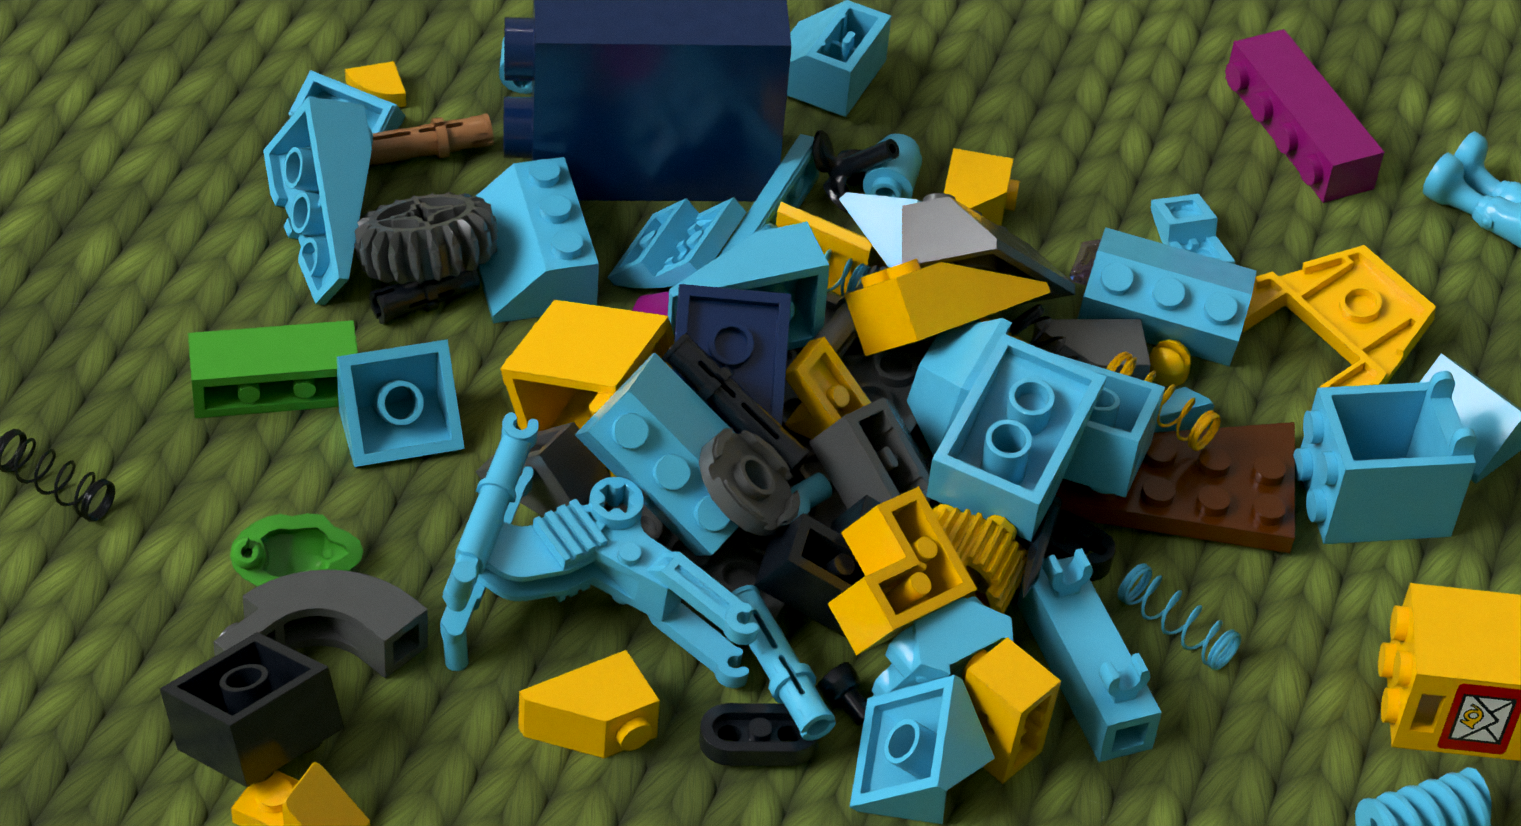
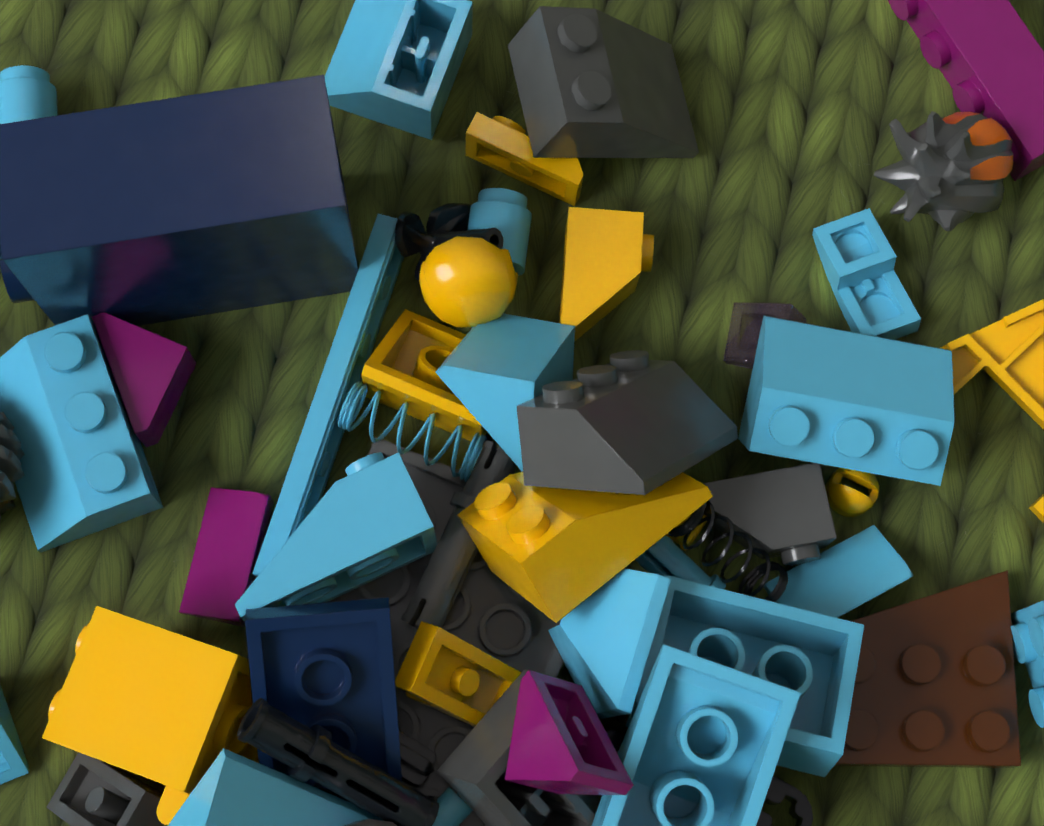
camera: 10 degrees left, 30 degrees up
(607, 209) = (147, 371): none -> magenta slope
(676, 244) = (247, 412): medium azure slope -> none
(868, 167) = (468, 281): none -> yellow hair
(913, 404) = (562, 742): none -> magenta slope
(933, 127) = (507, 148): none -> yellow slope
(984, 80) = (598, 88): none -> dark grey slope
(1199, 426) = (907, 649): yellow piece -> none
(1263, 164) = (950, 167): none -> dark grey hair

